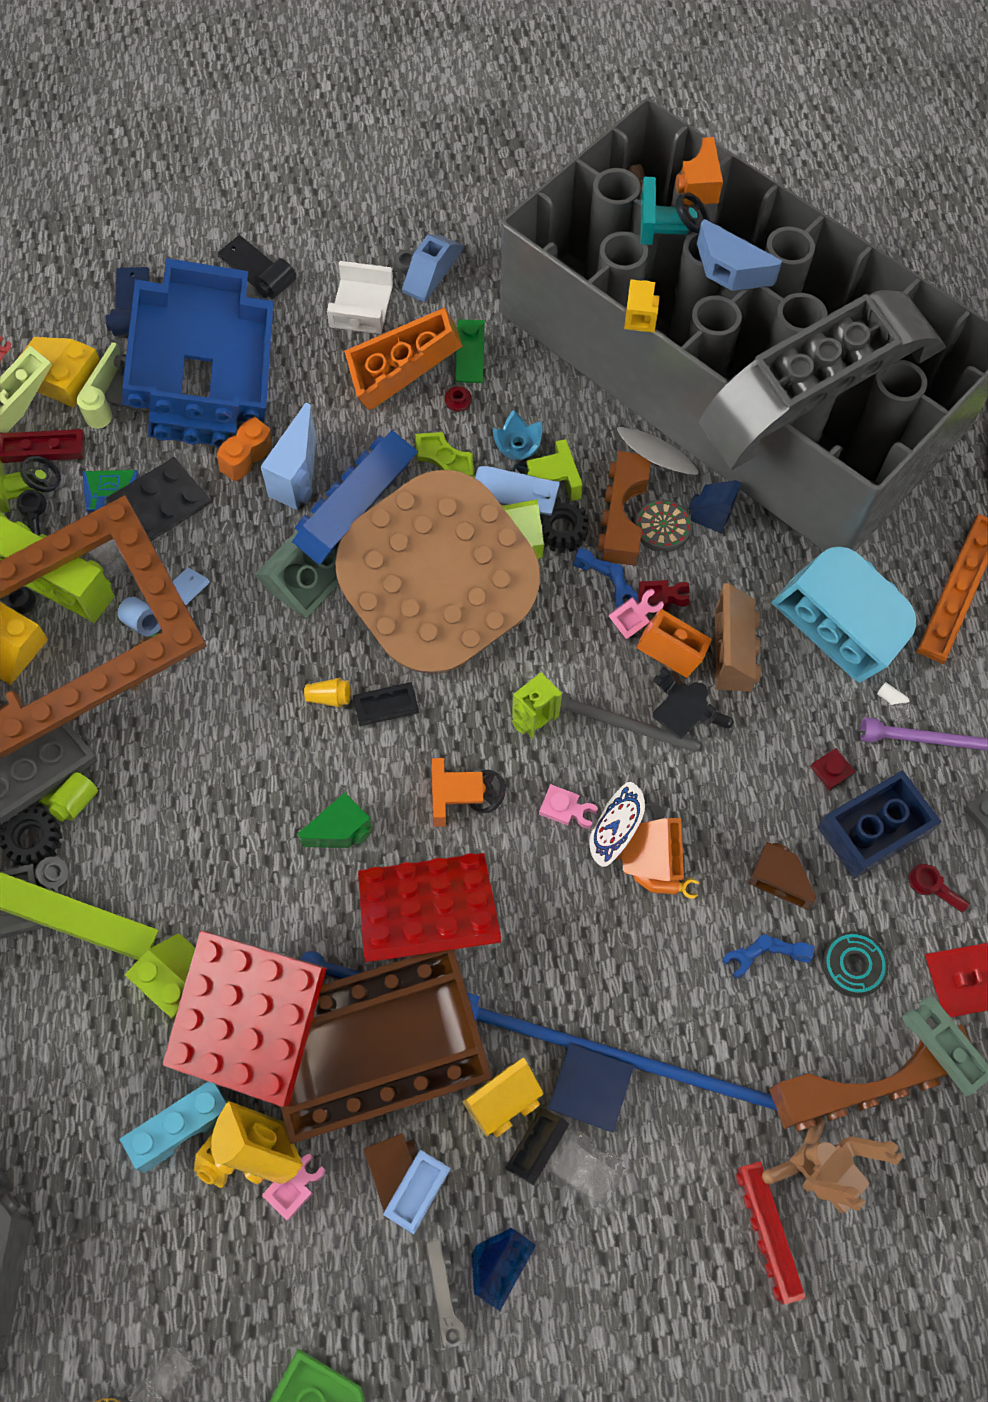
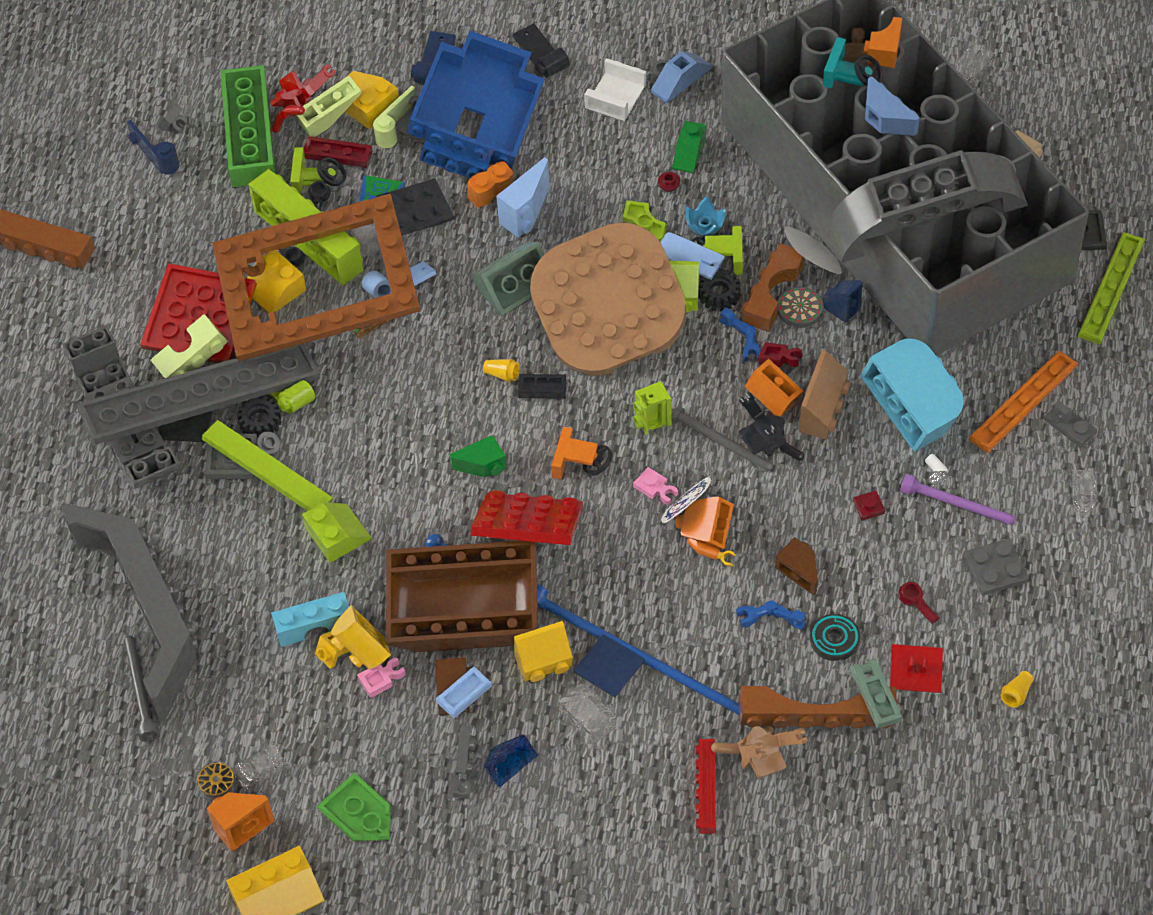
camera: 20 degrees right, 10 degrees down
(244, 1017) = (377, 554): plate -> none
(354, 497) = (582, 218): blue brick -> none
(401, 356) = (630, 139): orange wedge -> none
(537, 1146) = (549, 699): black plate -> none
(632, 615) = (750, 361): bright pink plate -> none
(641, 306) = (803, 130): yellow brick -> none
(878, 824) = (886, 546): dark blue brick -> none

